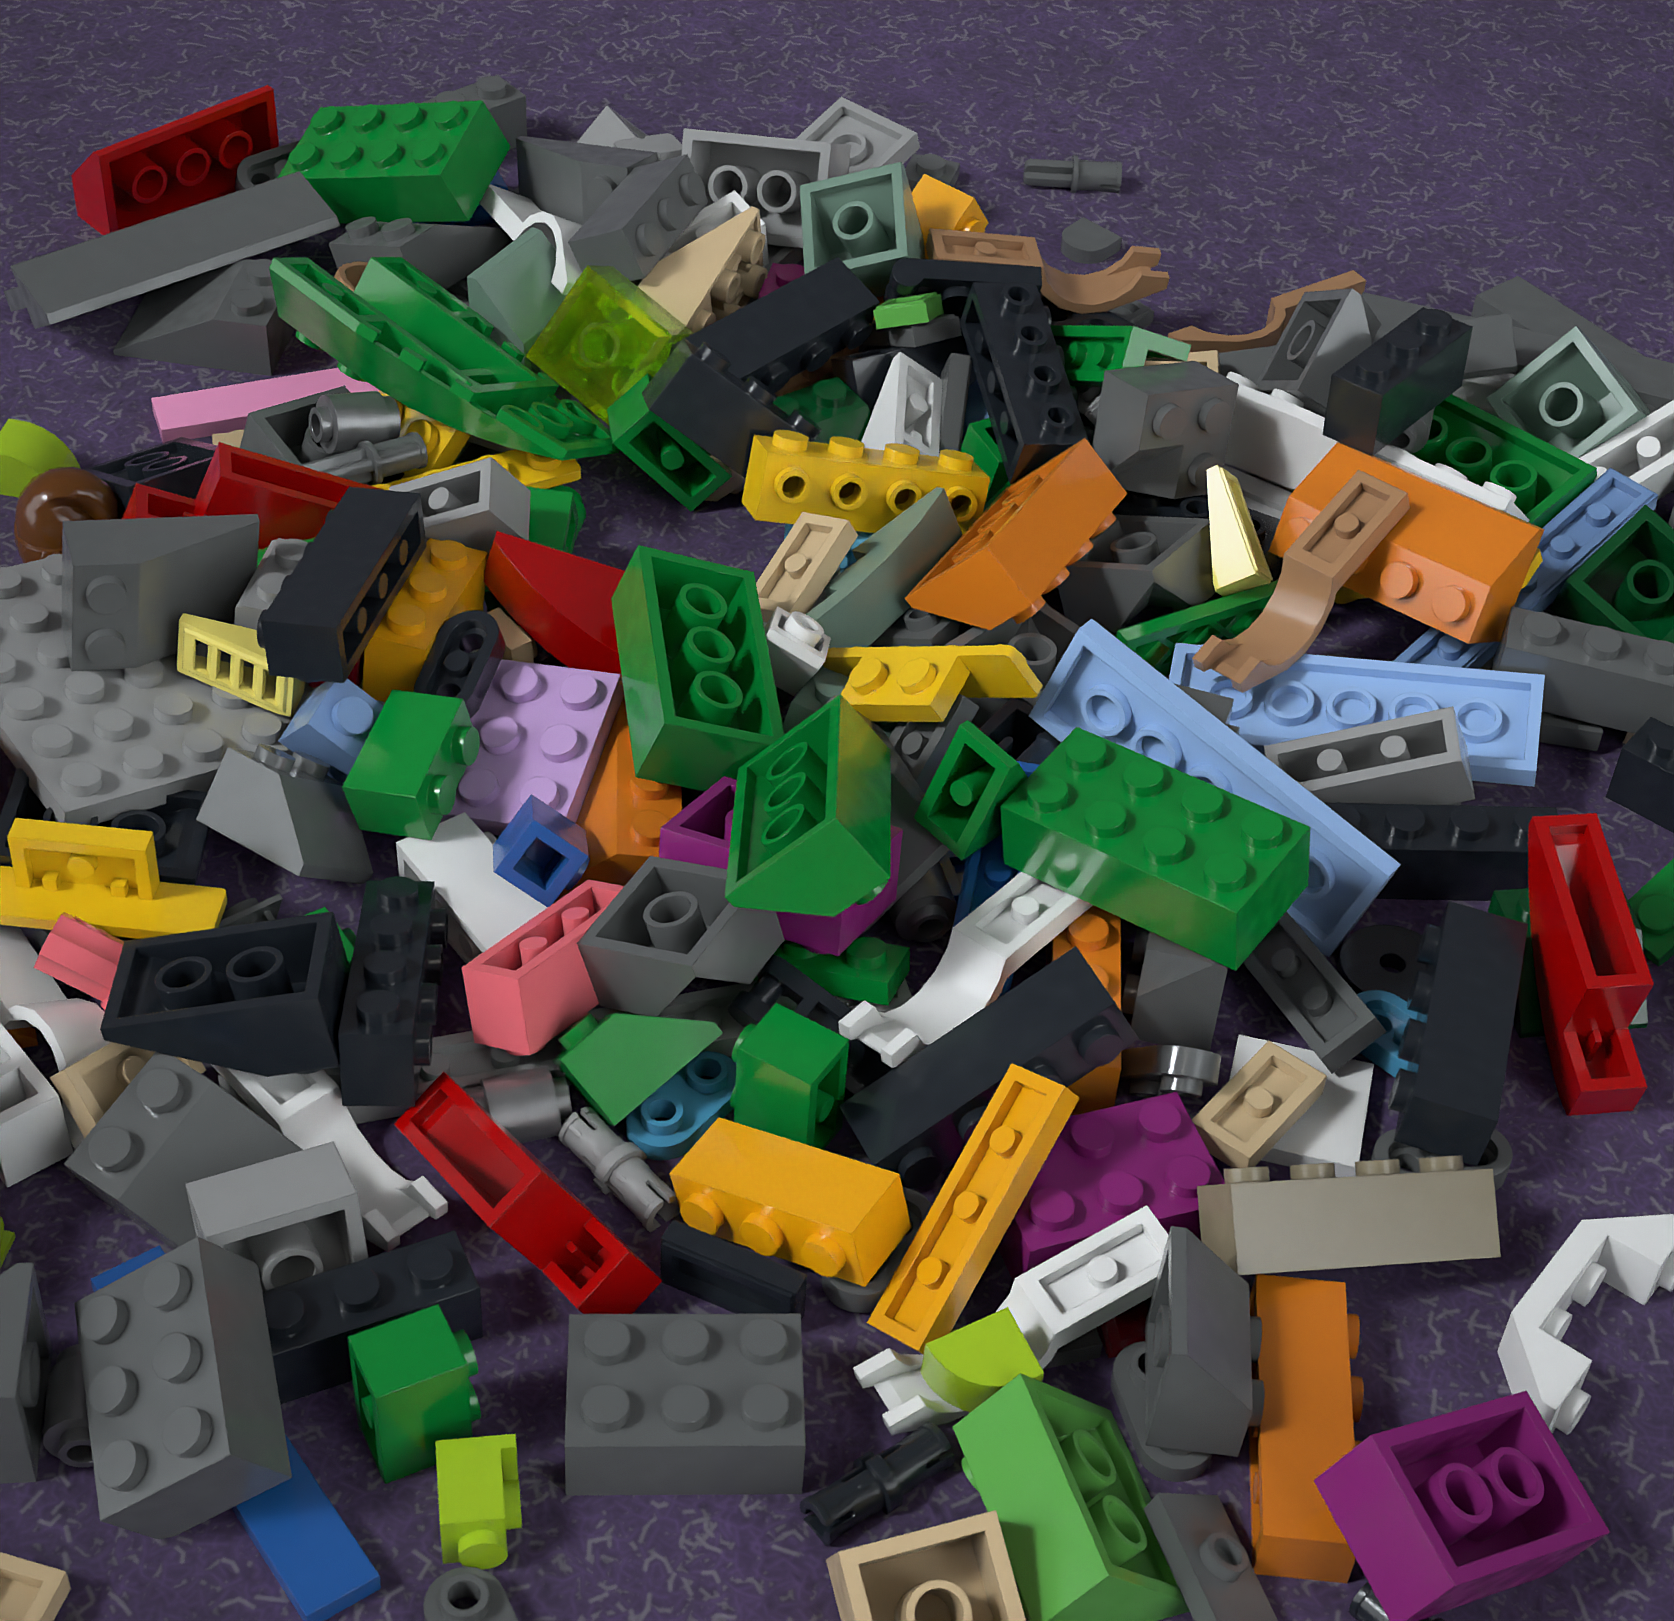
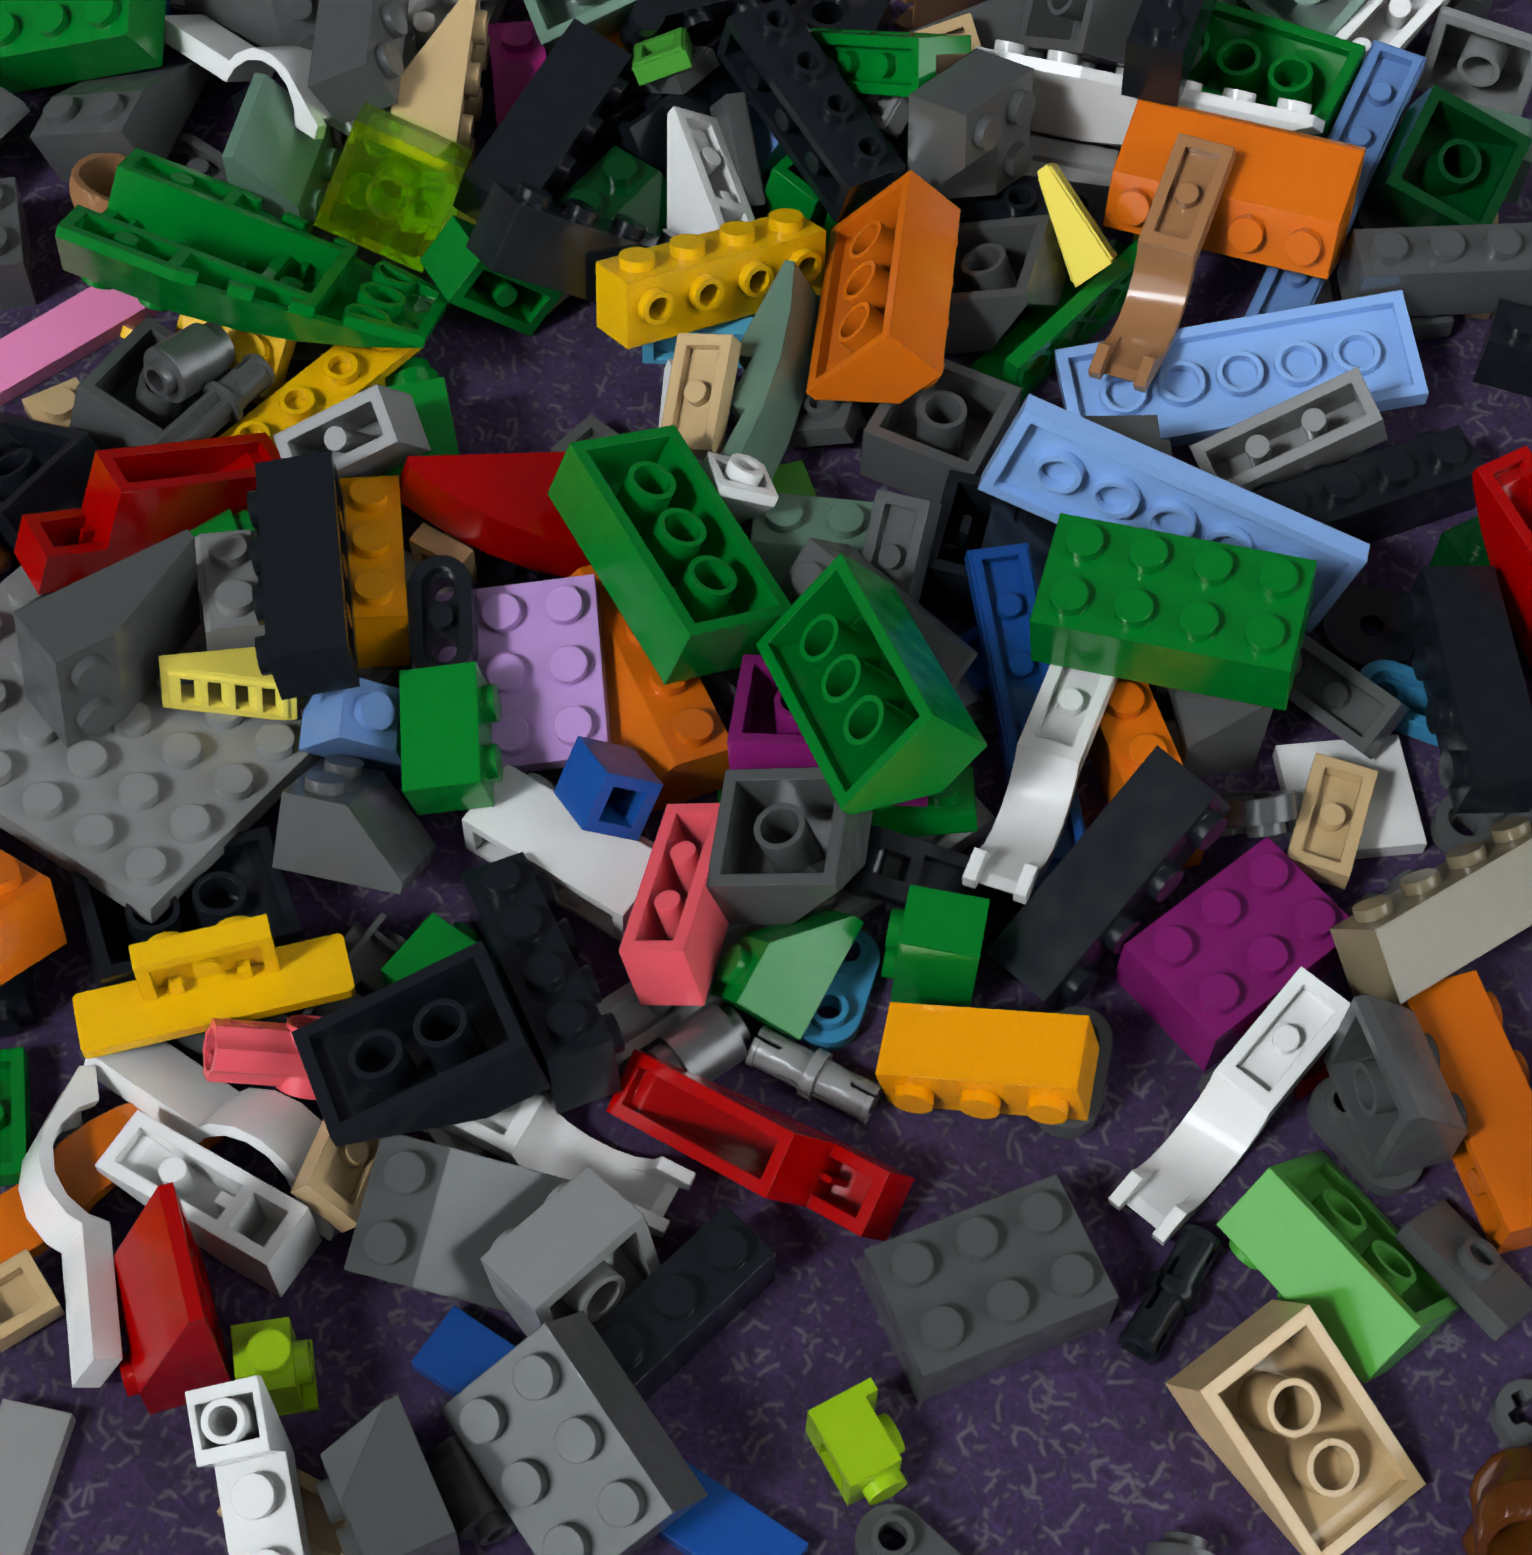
camera: 20 degrees left, 15 degrees up
(412, 1389) = (767, 1372): green brick -> none
(729, 1274) = (967, 1149): black tile -> none
(926, 680) = (878, 496): yellow bracket -> none
(968, 792) = (988, 612): green slope -> none
(973, 1209) = (1156, 1020): light orange plate -> none
(978, 1360) = (1222, 1160): lime brick -> none

